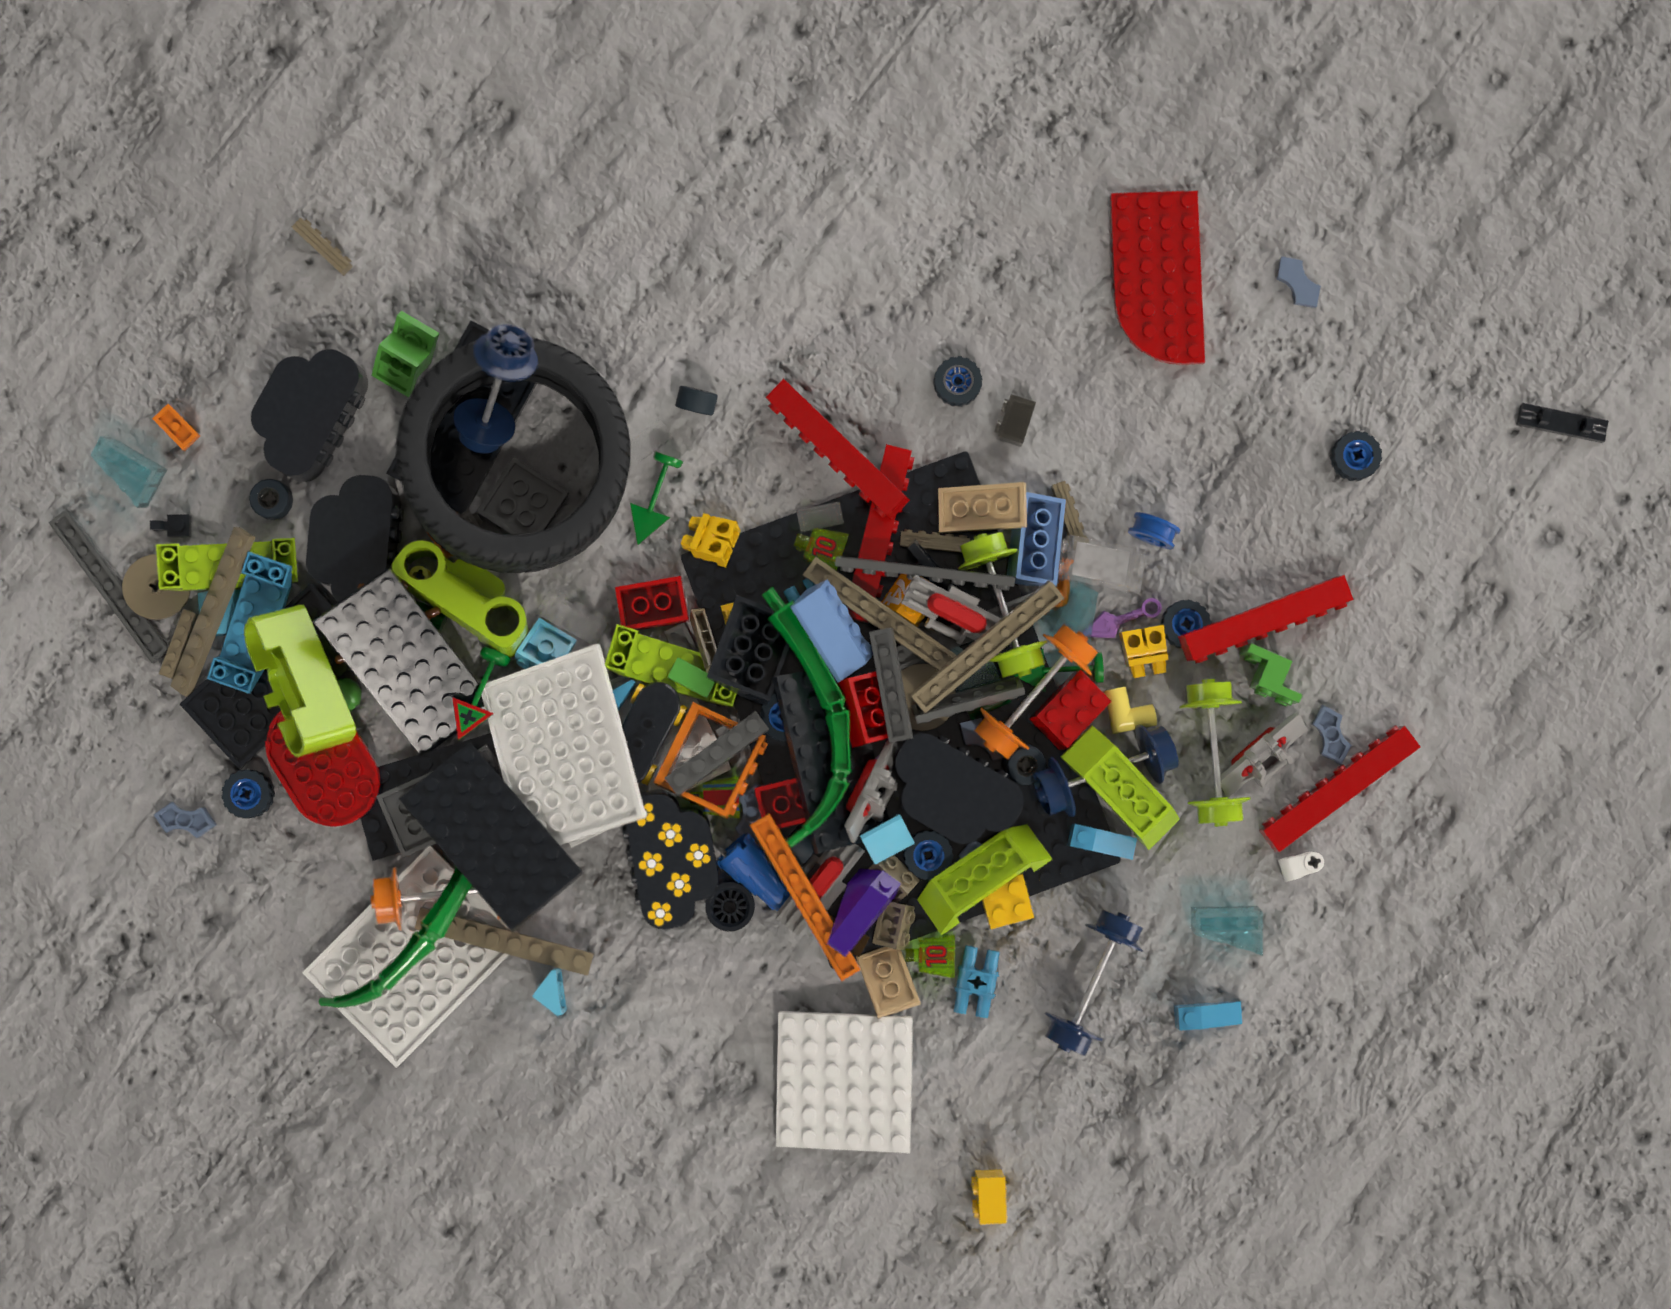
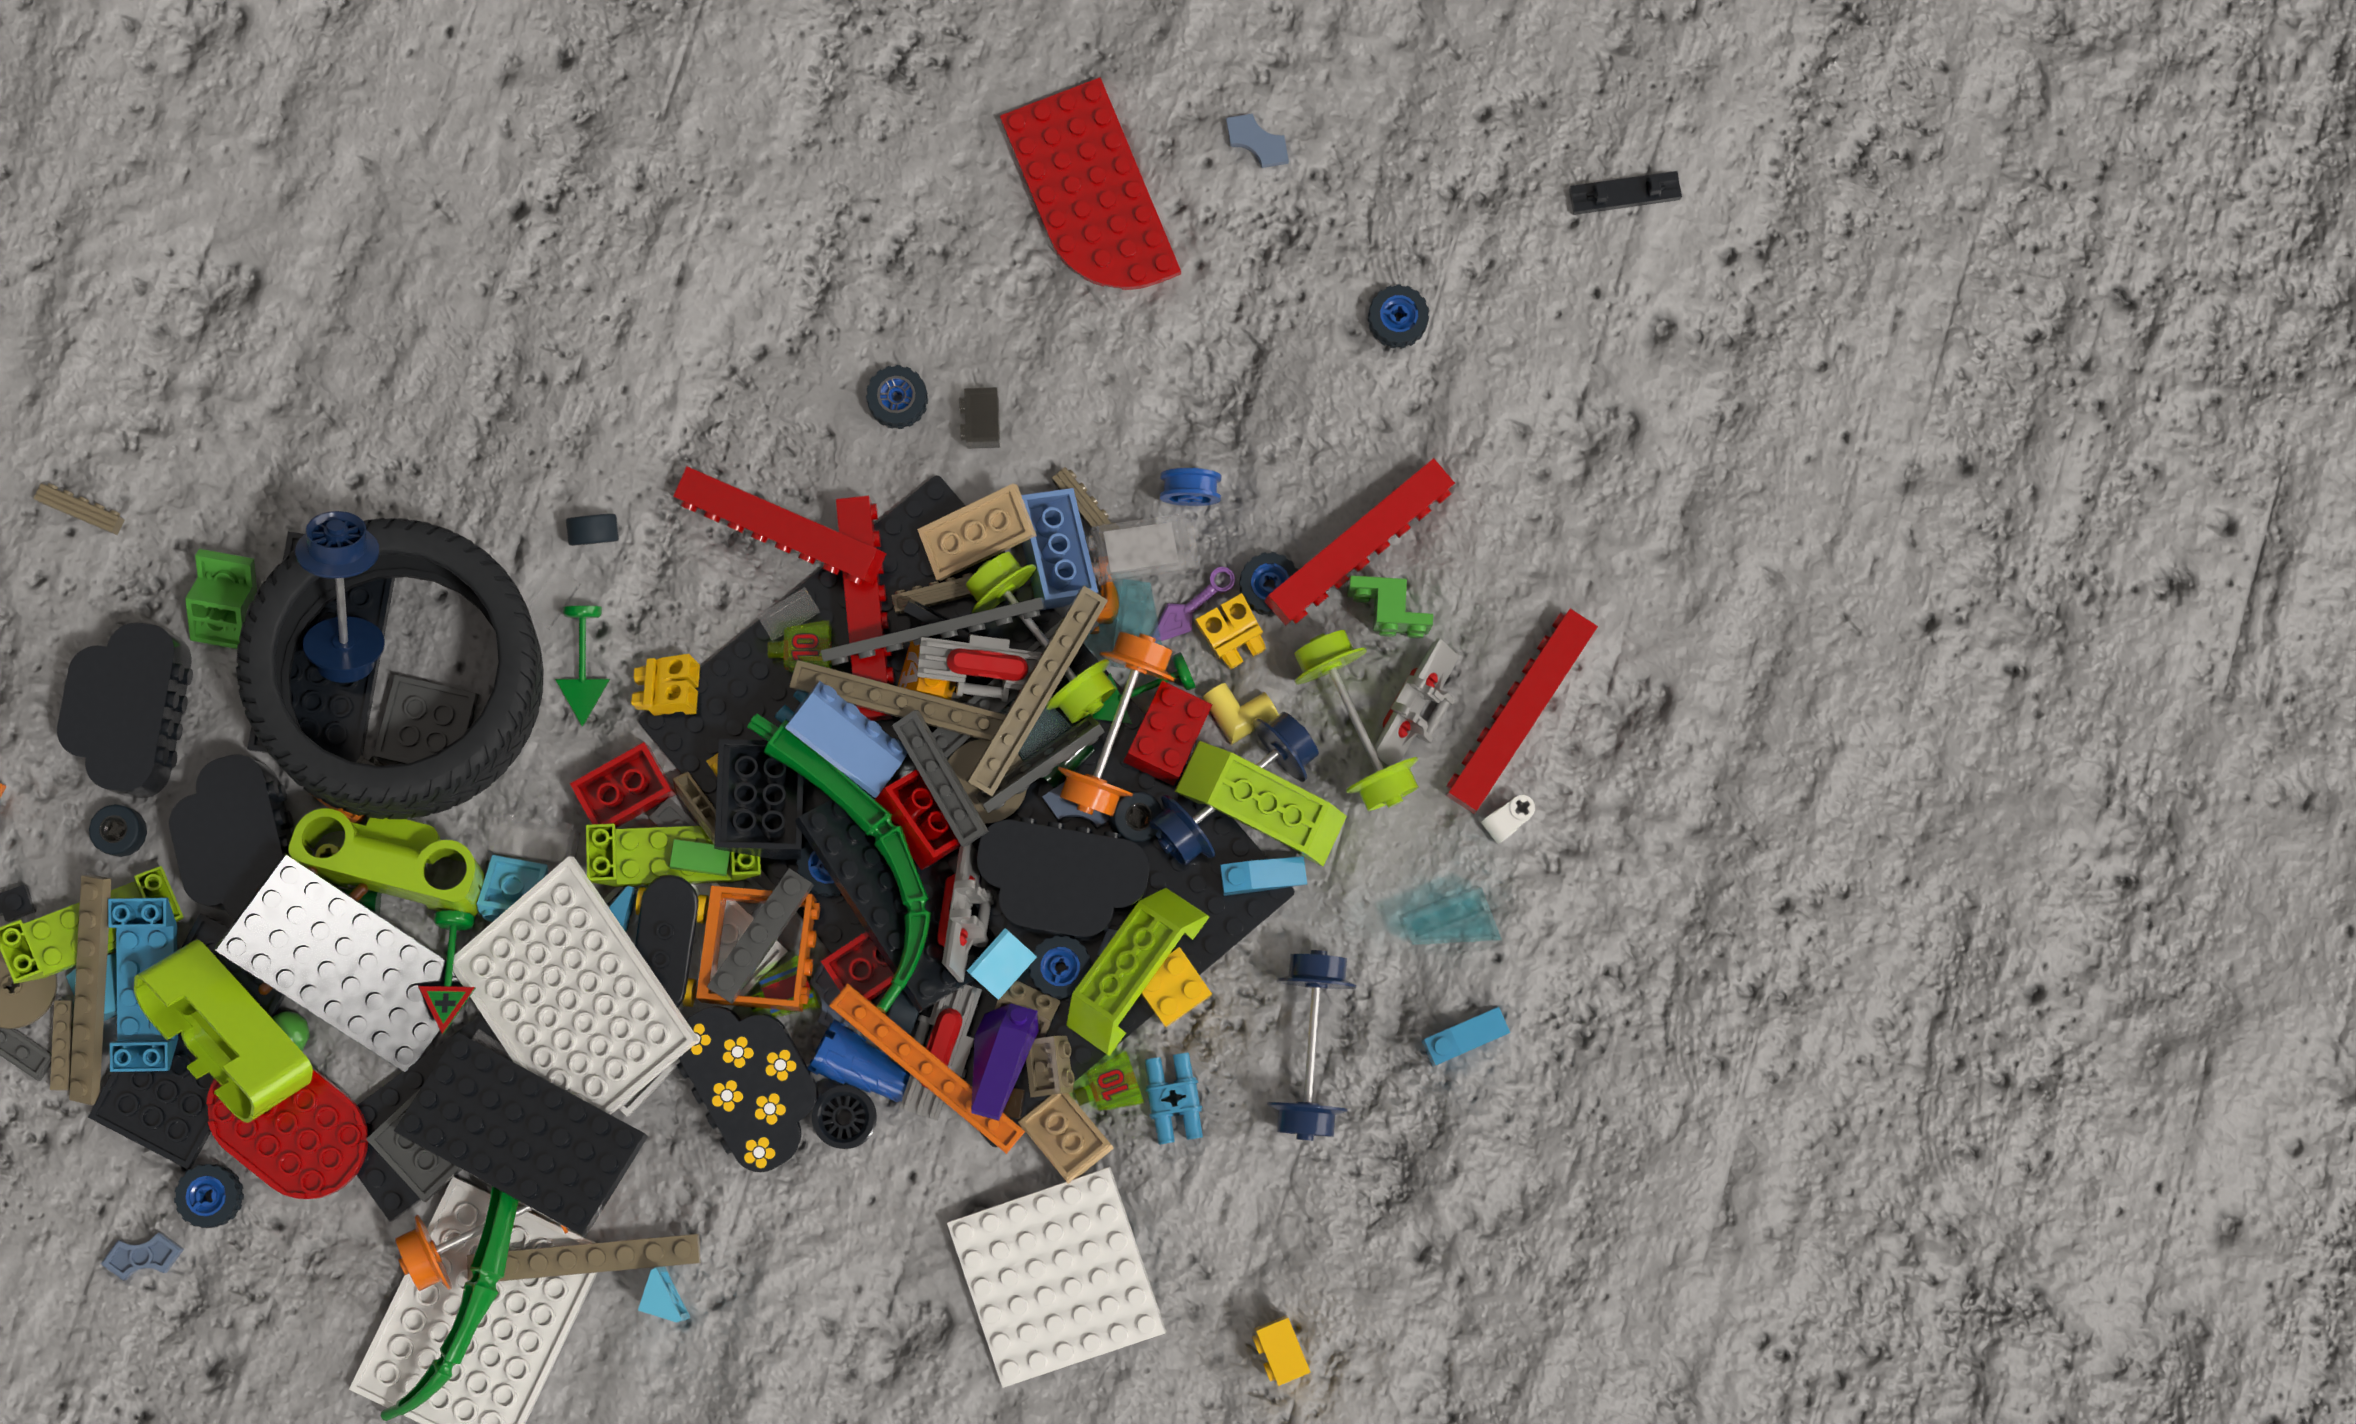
camera: 15 degrees left, 5 degrees down
(1334, 744) = (1498, 662): sand blue tile -> none

